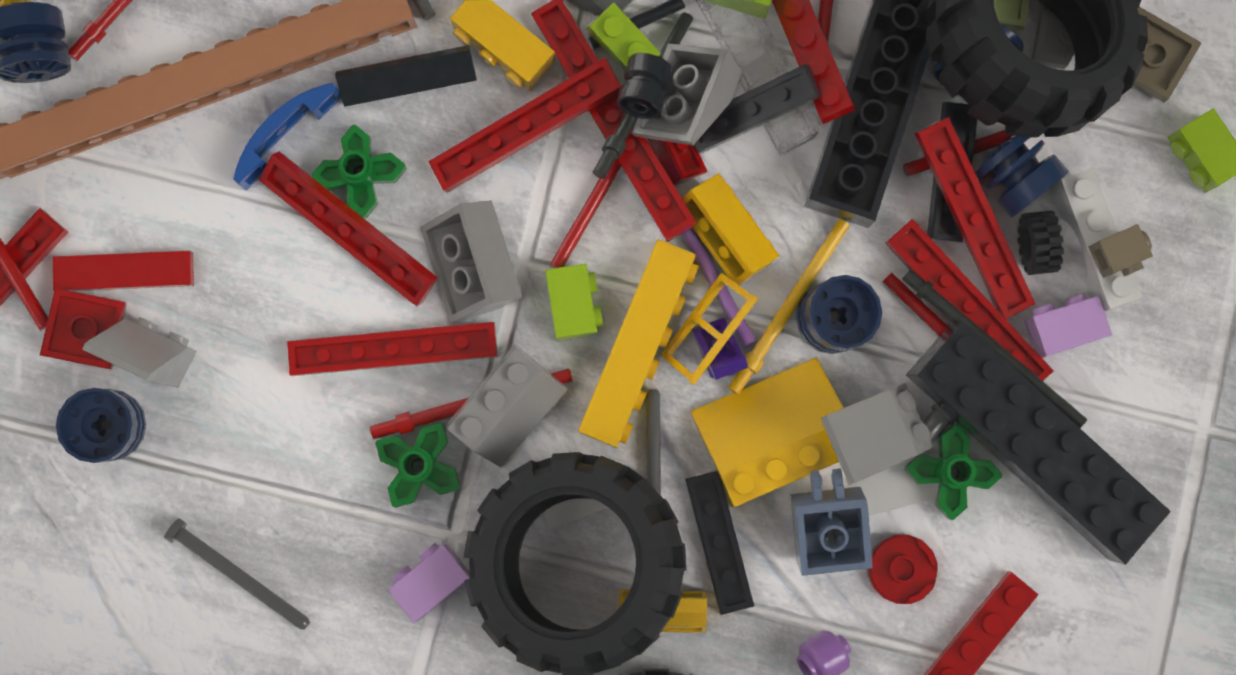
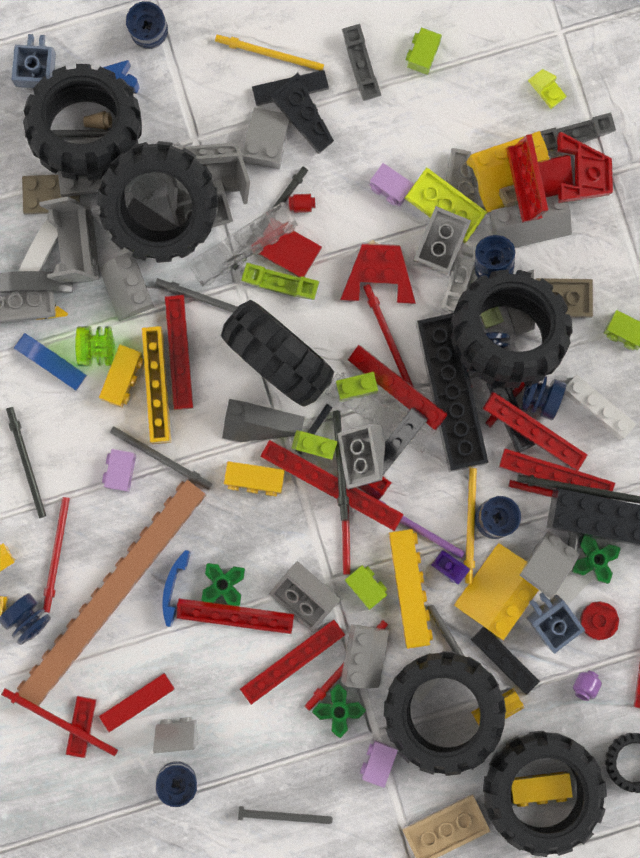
camera: 30 degrees left, 0 degrees up
(75, 320) = (134, 742): red tile -> none
(406, 76) = (217, 523): black tile -> none
(525, 125) = (292, 514): red plate -> none
(644, 86) = (340, 462): black wheel -> none
(695, 317) = (429, 558): yellow window -> none
(729, 230) = (421, 507): yellow brick -> none
(1040, 242) = (572, 424): black tyre -> none
(1067, 326) = (609, 456): lavender brick -> none
(1122, 252) = (614, 409): dark tan brick -> none

